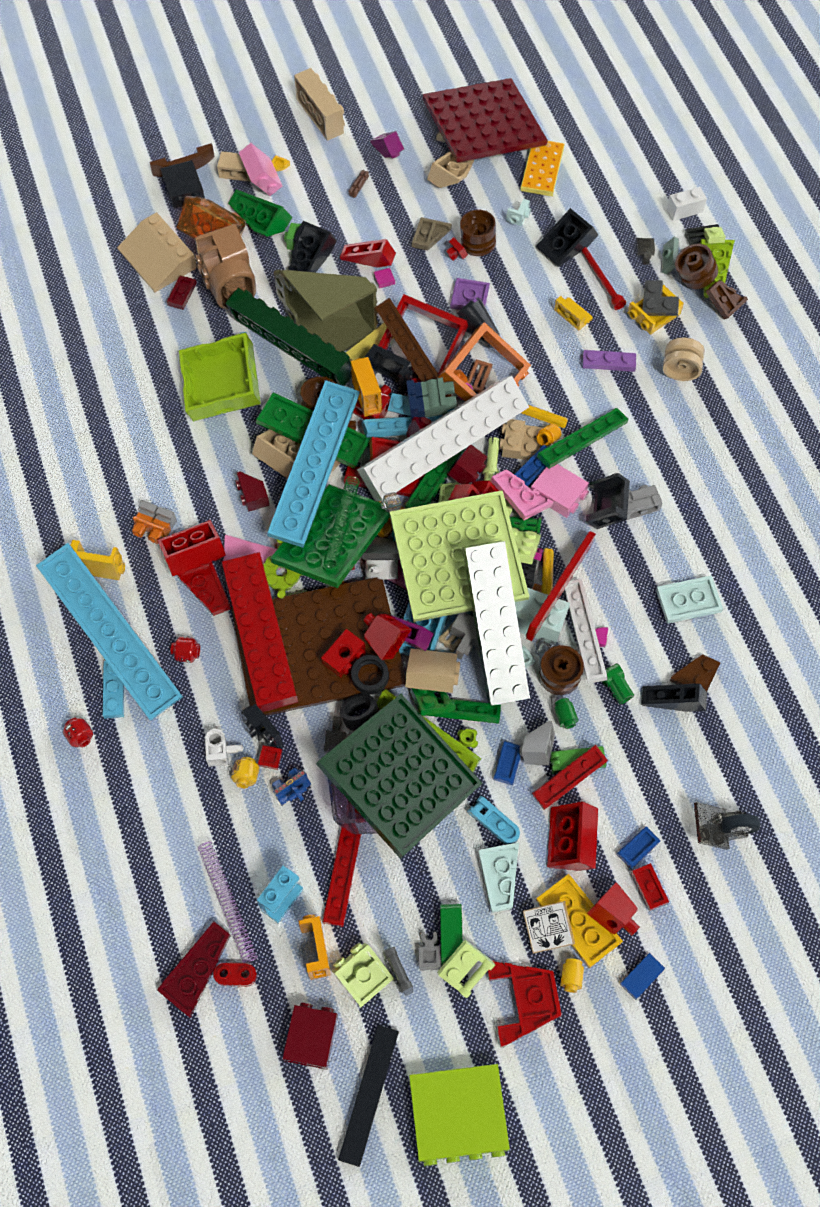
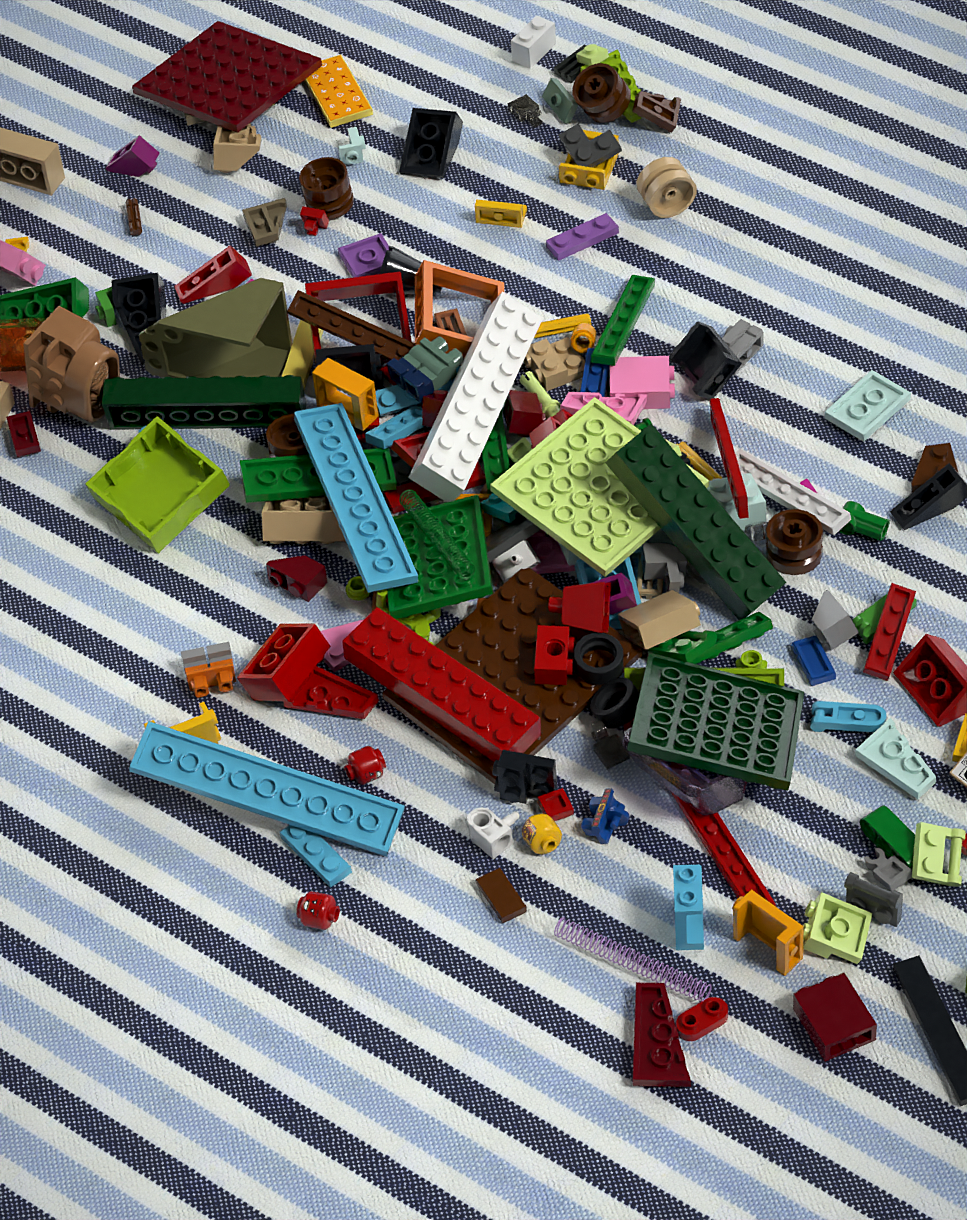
camera: 30 degrees left, 15 degrees down
(191, 797) = (501, 895): none -> reddish brown tile
(391, 502) = (475, 486): clear piece -> none
(565, 713) = (834, 579): green brick -> none
(617, 300) = (541, 175): red piece -> none

